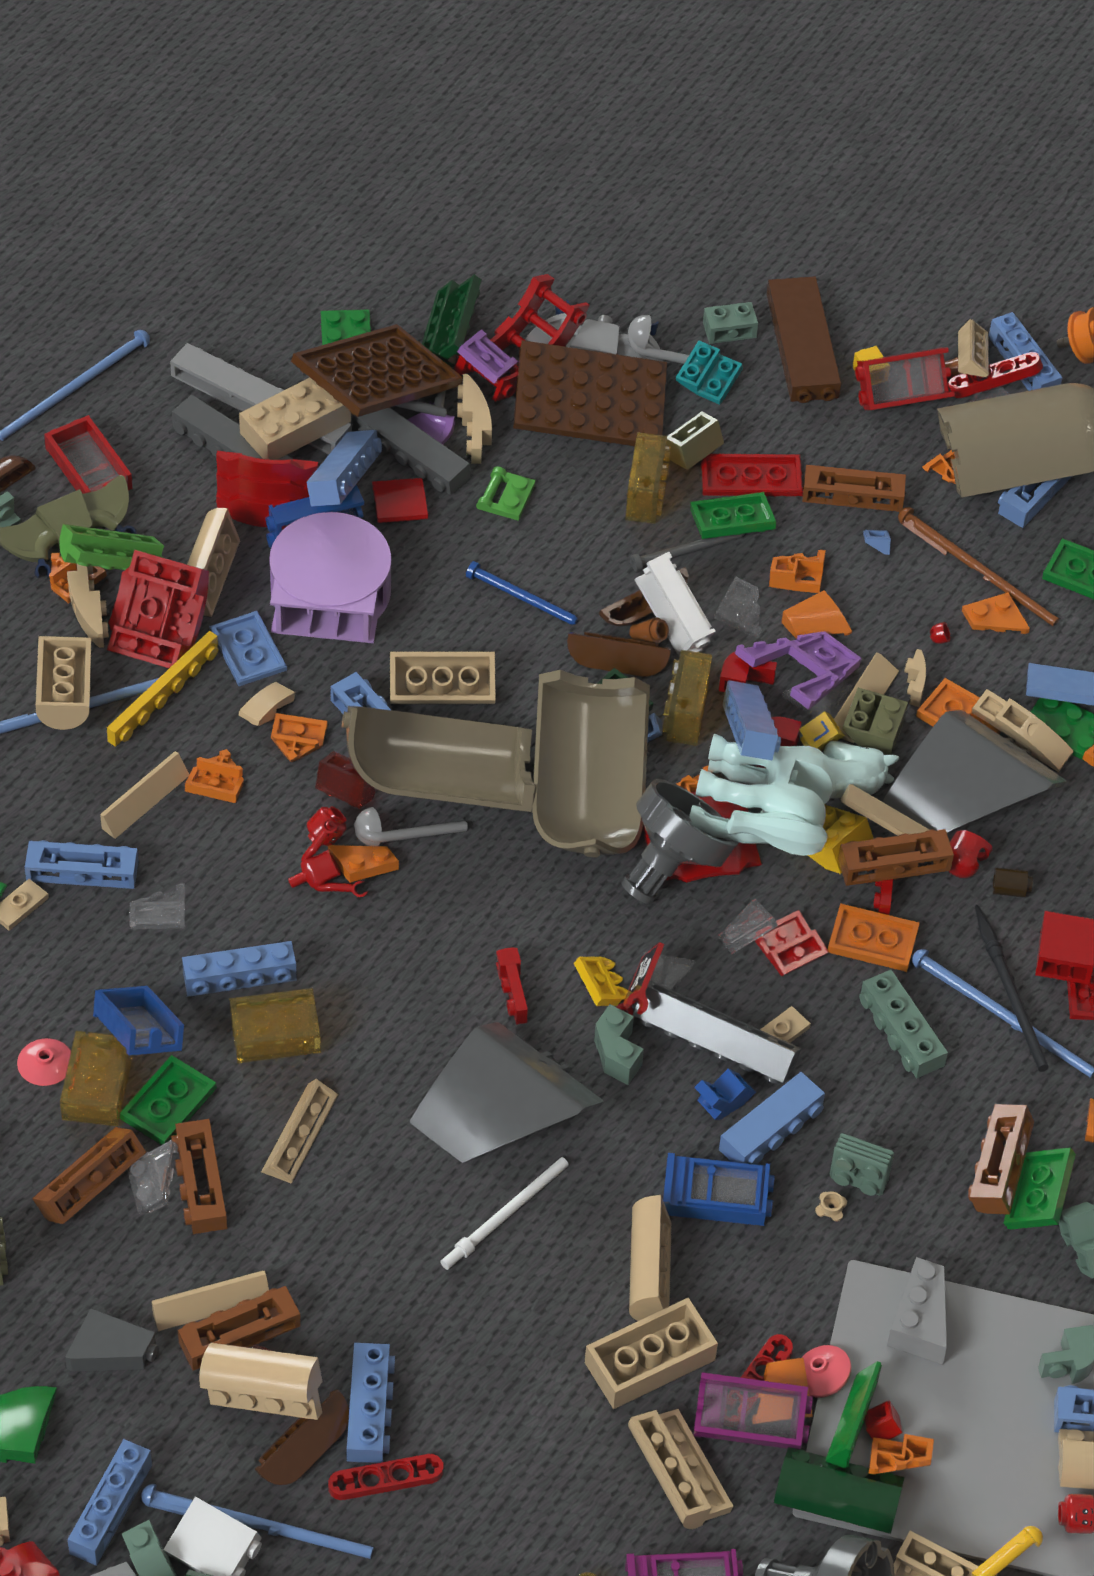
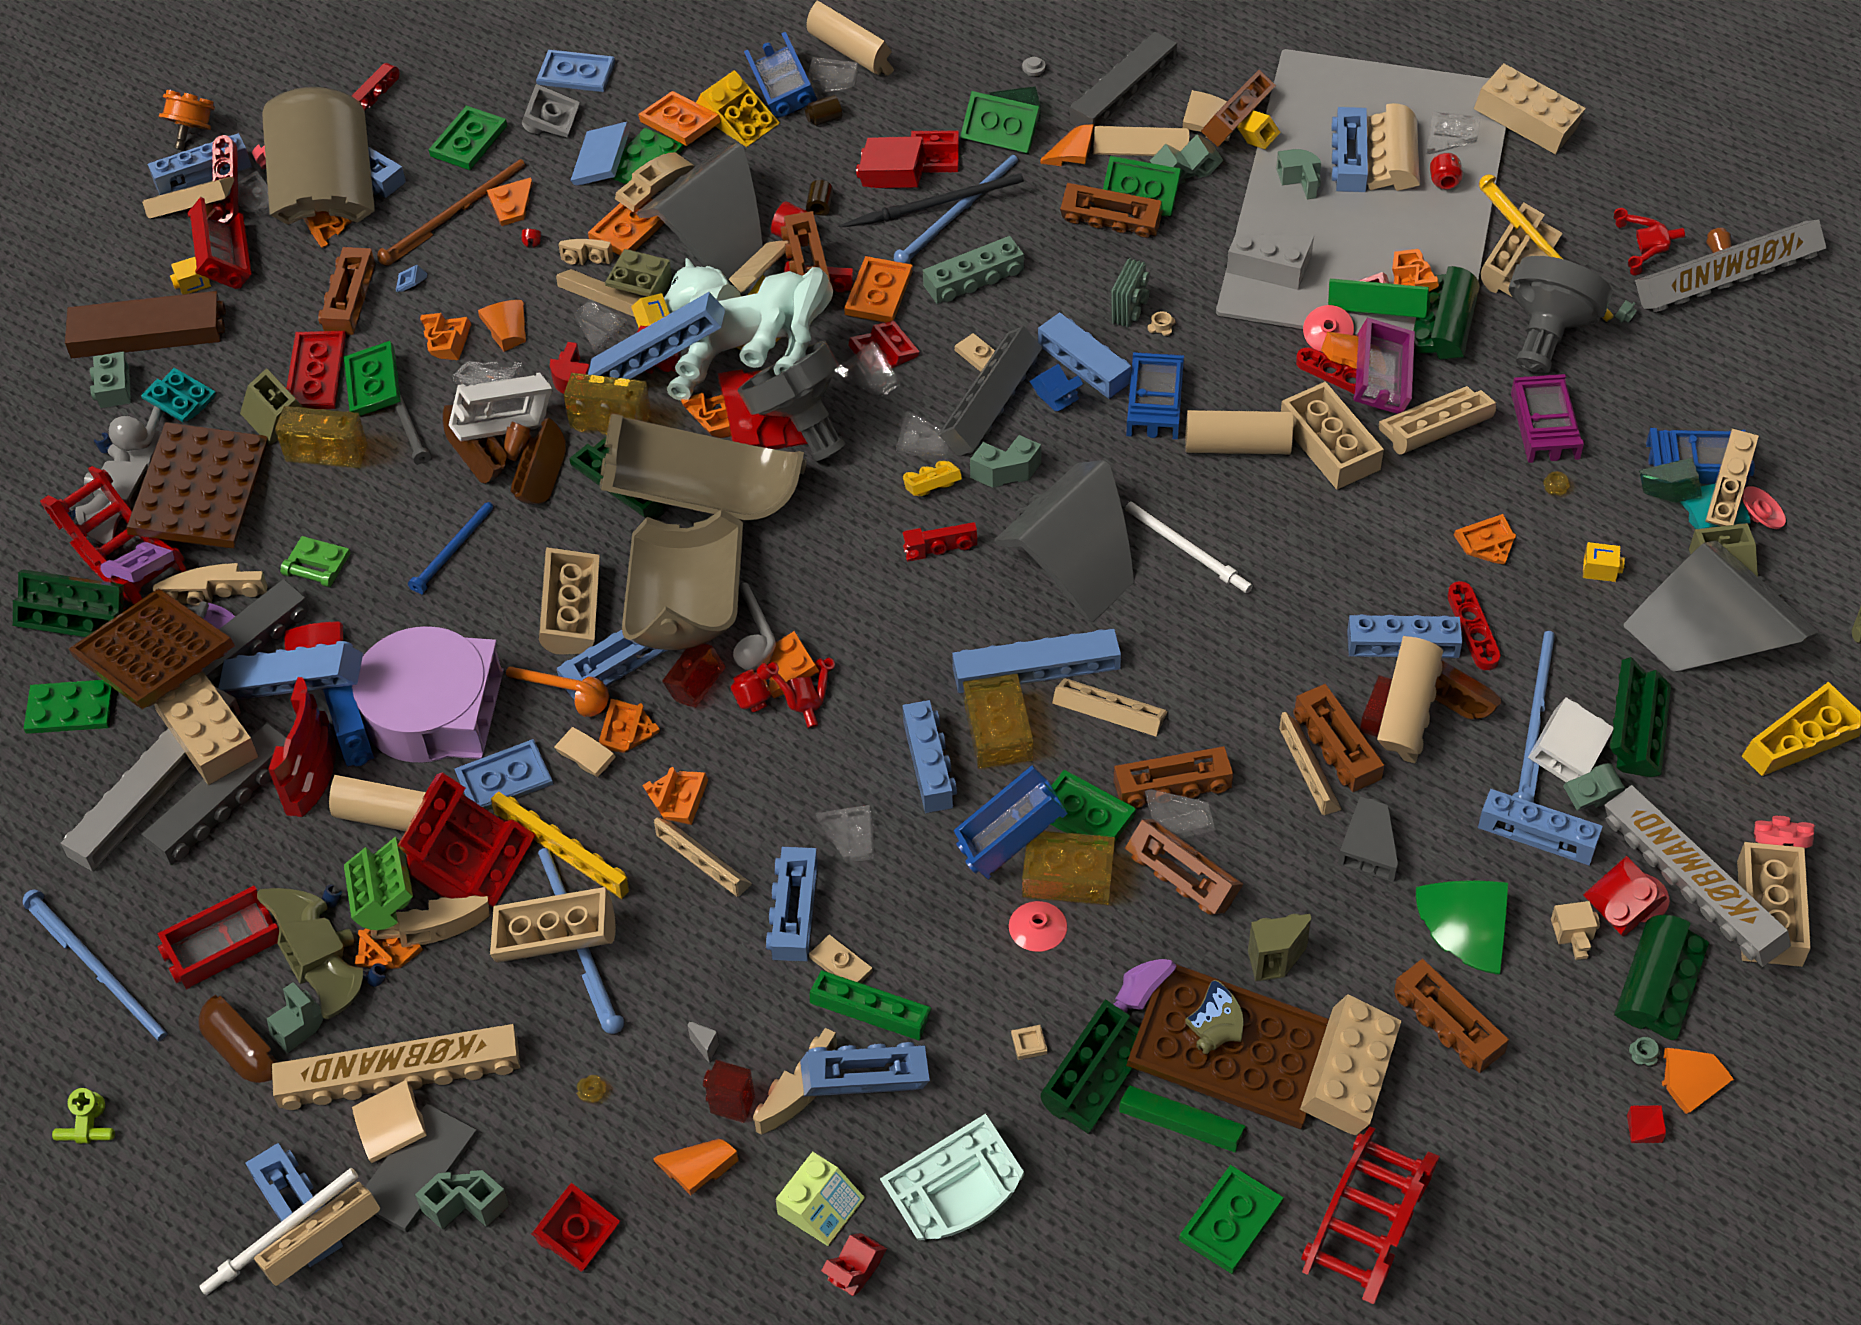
camera: 85 degrees left, 0 degrees up
(324, 699) = (590, 693): none -> orange piece
(353, 1065) = (1040, 658): none -> medium blue brick
(507, 1507) = (1487, 539): none -> orange slope
(640, 981) = (945, 434): red flag -> none
(816, 651) = (562, 310): medium lavender wing -> none

